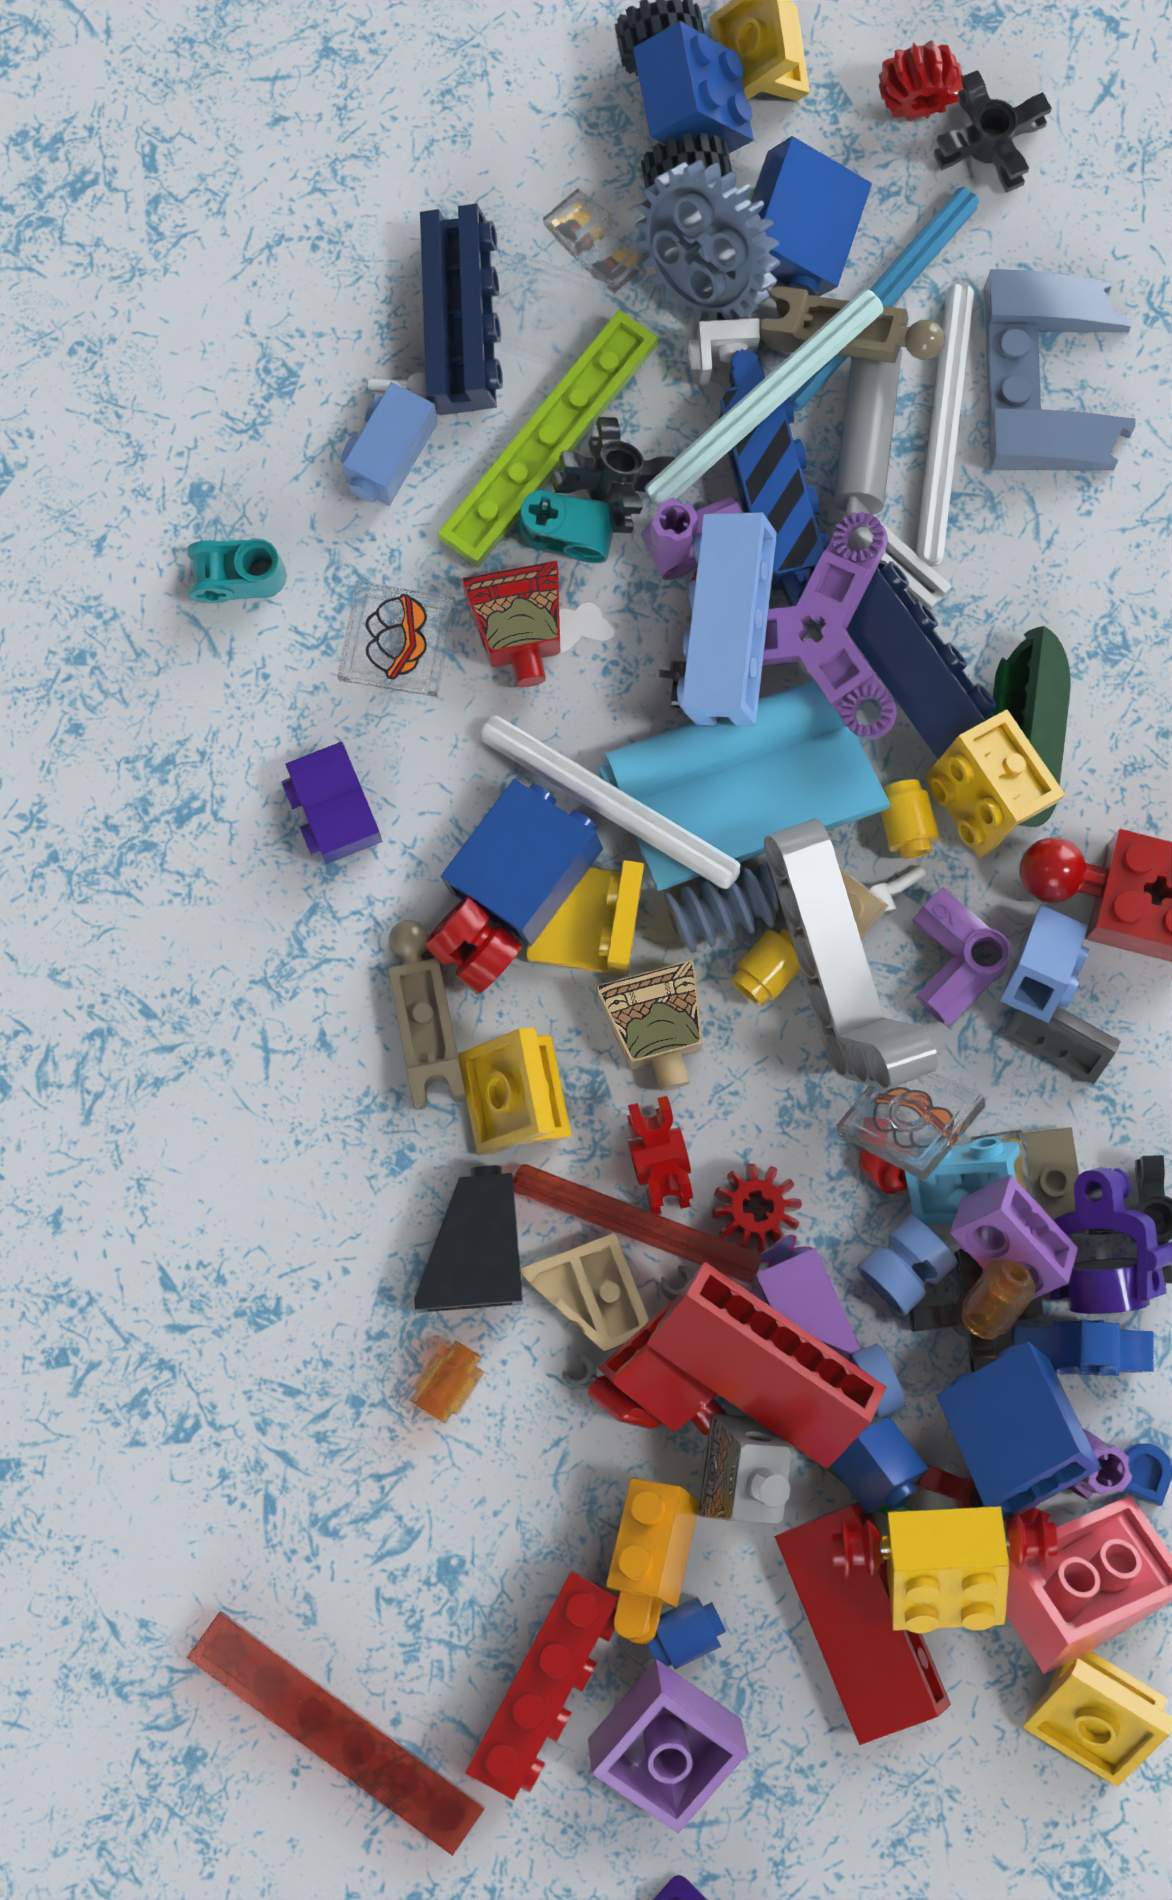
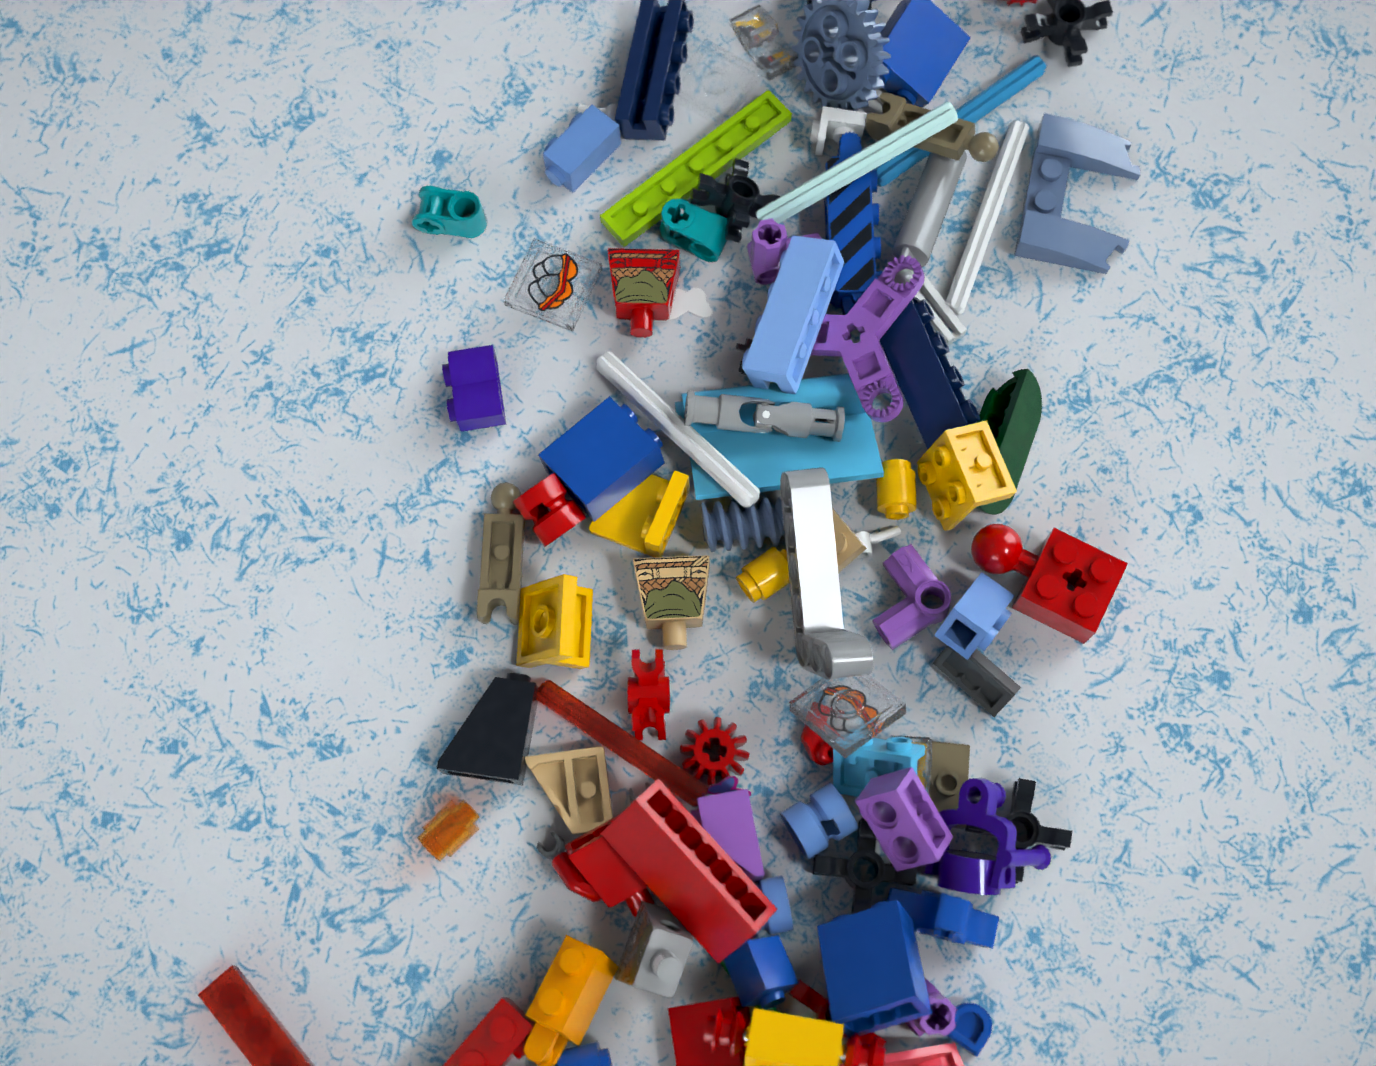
camera: 15 degrees right, 5 degrees down
(756, 759) = (791, 419): none -> light grey piece
(997, 1298) = (880, 861): clear orange brick -> none

